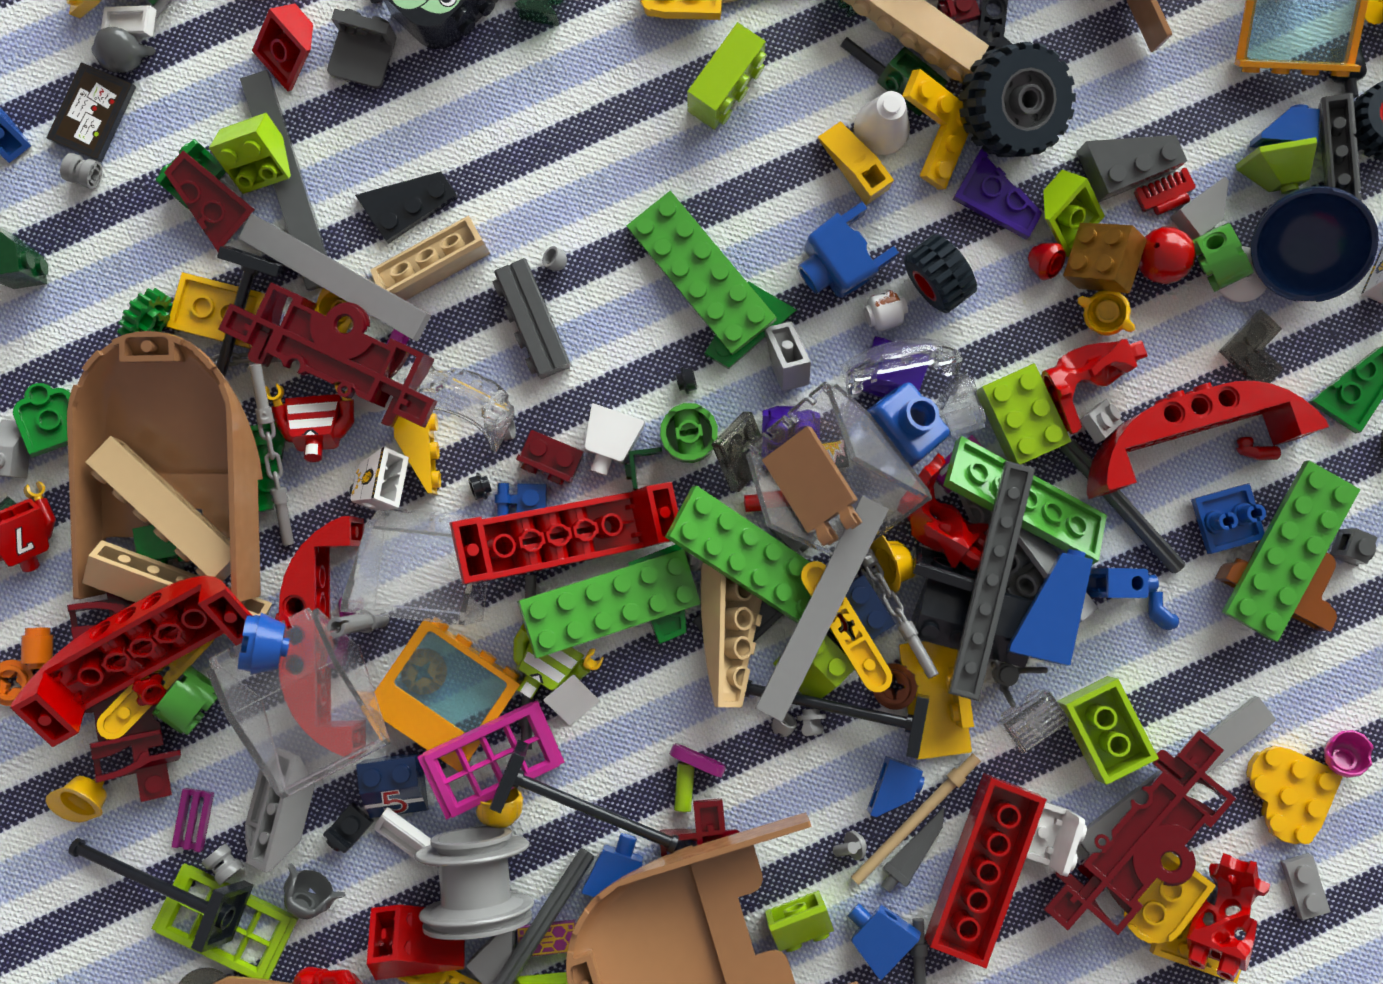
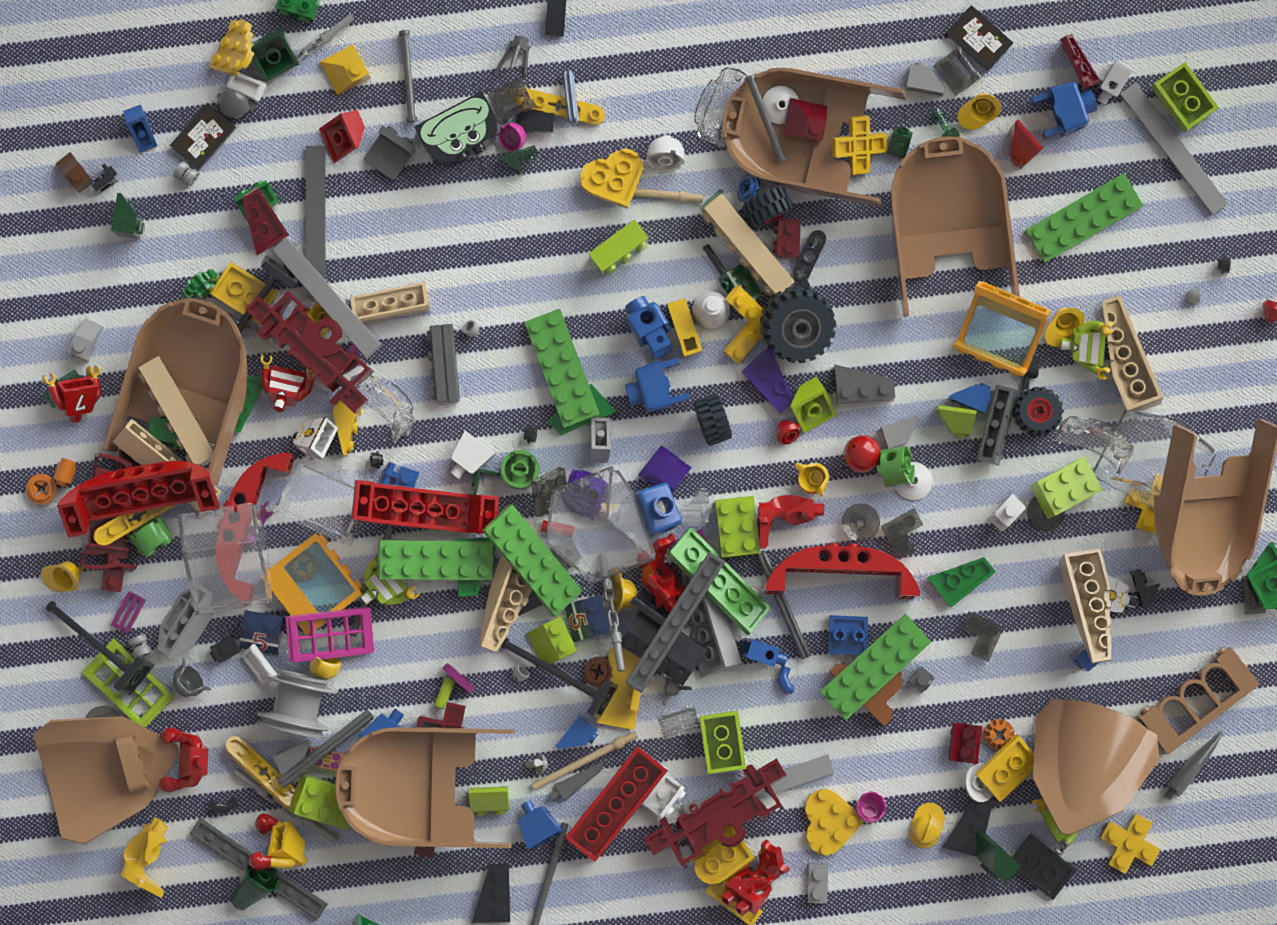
camera: 20 degrees right, 0 degrees up
(43, 418) = (116, 328): green plate -> none
(152, 696) = (133, 522): red plate -> none
(252, 153) = (299, 199): lime slope -> none
(262, 644) = (220, 516): blue cone -> none
(265, 416) = (257, 374): light grey piece -> none
(356, 623) = (277, 522): light grey pin -> none
(402, 949) = (241, 732): red slope -> none
(406, 203) = (387, 261): black wing -> none
(515, 777) = (342, 649): black tile -> none
(550, 457) = (427, 455): dark red bracket -> none
(571, 700) = (391, 614): white sticker -> none
(804, 170) = (649, 334): none -> blue piece
(812, 722) = (538, 677): light grey plate -> none
(813, 485) = (585, 528): medium nougat tile -> none
(821, 611) = (565, 606): light grey tile -> none
(860, 651) = (574, 604): yellow piece -> none
(885, 310) = (672, 431): white head -> none
(899, 356) = (672, 464): clear windscreen -> none
(1054, 615) = (707, 656): blue slope -> none
(1101, 421) = (784, 546): light grey plate -> none
(1105, 257) = (821, 442): pearl gold brick -> none
(1168, 198) = (881, 417): red piece -> none
(1205, 352) = (868, 515): none -> clear smoke dish
(1246, 448) = (881, 599): red arm -> none
(1314, 244) = (953, 477): dark blue piece -> none

